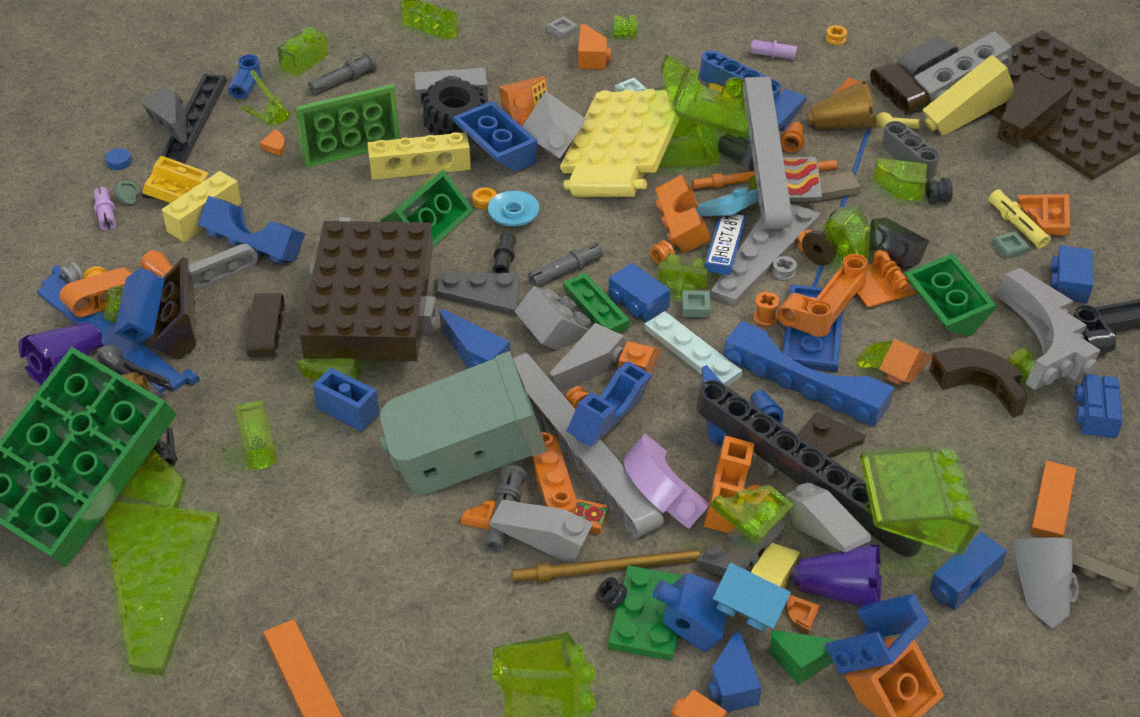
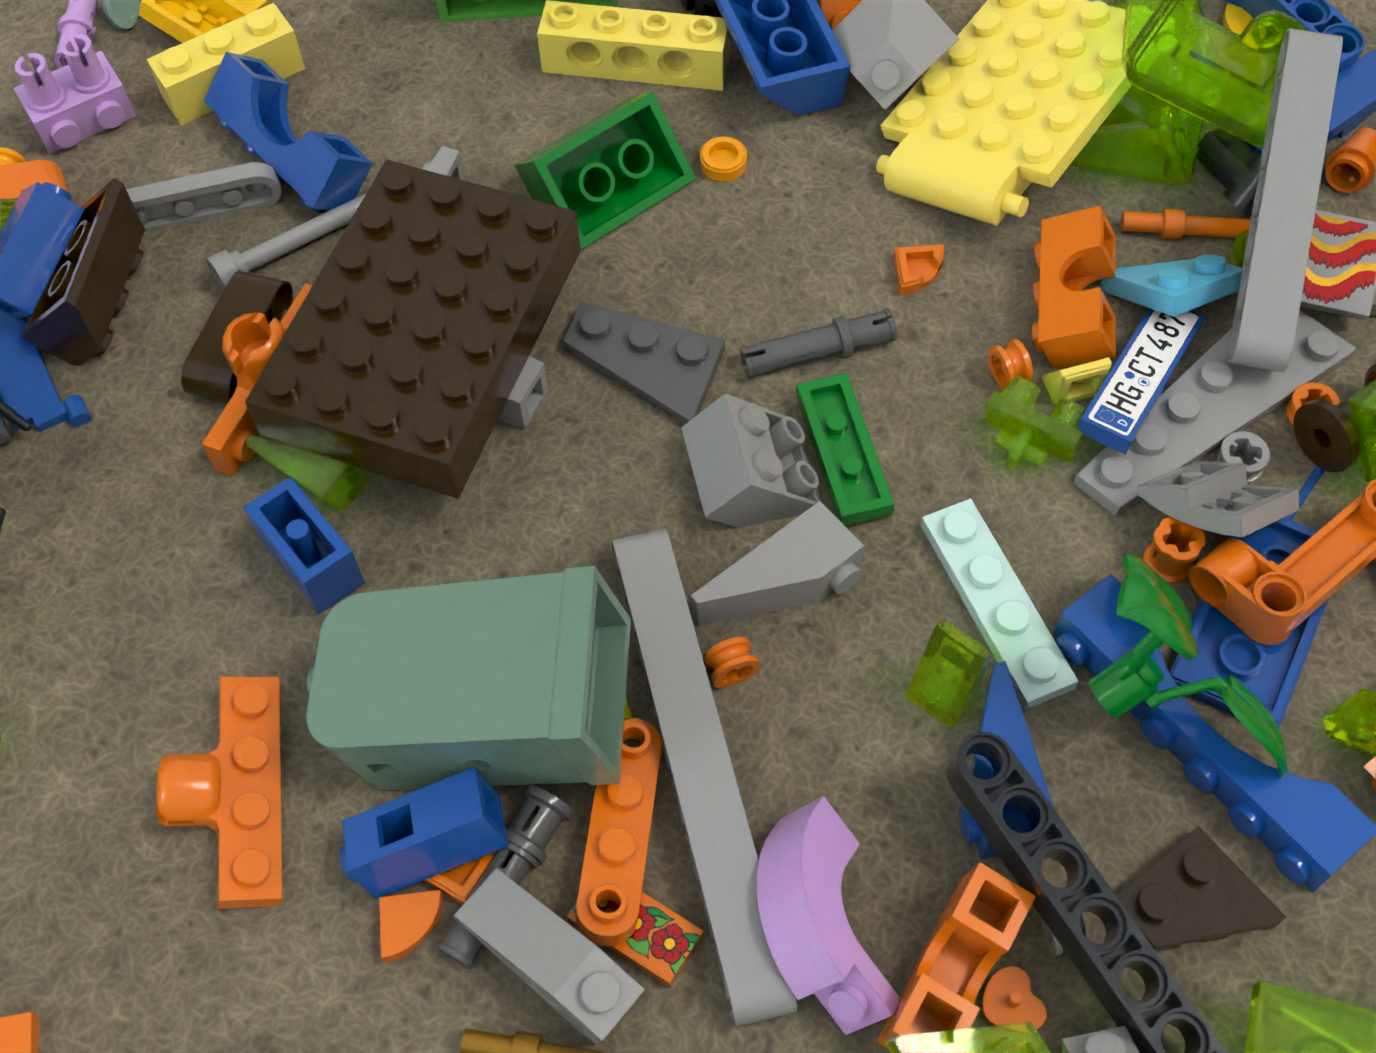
camera: 20 degrees right, 15 degrees up
(122, 238) = (74, 98): none -> lavender brick
(156, 263) = (107, 160): orange cone -> none
(244, 296) = (225, 264): none -> light grey piece
(255, 435) = (113, 583): clear neon green slope -> none
(288, 325) = (247, 348): none -> orange plate
(354, 507) = (235, 792): none -> orange plate
(460, 496) = (423, 833): none -> blue brick
(463, 539) = (407, 922): none -> orange tile
(471, 341) = (590, 492): blue slope -> none
(504, 253) = (713, 290): black pin -> none
(513, 208) = (764, 182): medium azure dish -> none
(598, 414) = (750, 729): blue arch -> none
(600, 224) = (917, 266): none -> orange tile
(638, 292) = (933, 445): blue brick -> none
(640, 355) = (878, 605): orange slope -> none
(682, 375) = (948, 674): none -> clear neon green slope
(696, 304) = (1038, 498): sand green plate -> none
(697, 250) = (1077, 381): none -> light yellow slope
(766, 352) = (1135, 676): none -> green plant
(767, 405) = (1095, 793): blue cone -> none
(779, 281) = (1218, 498): none -> light grey slope

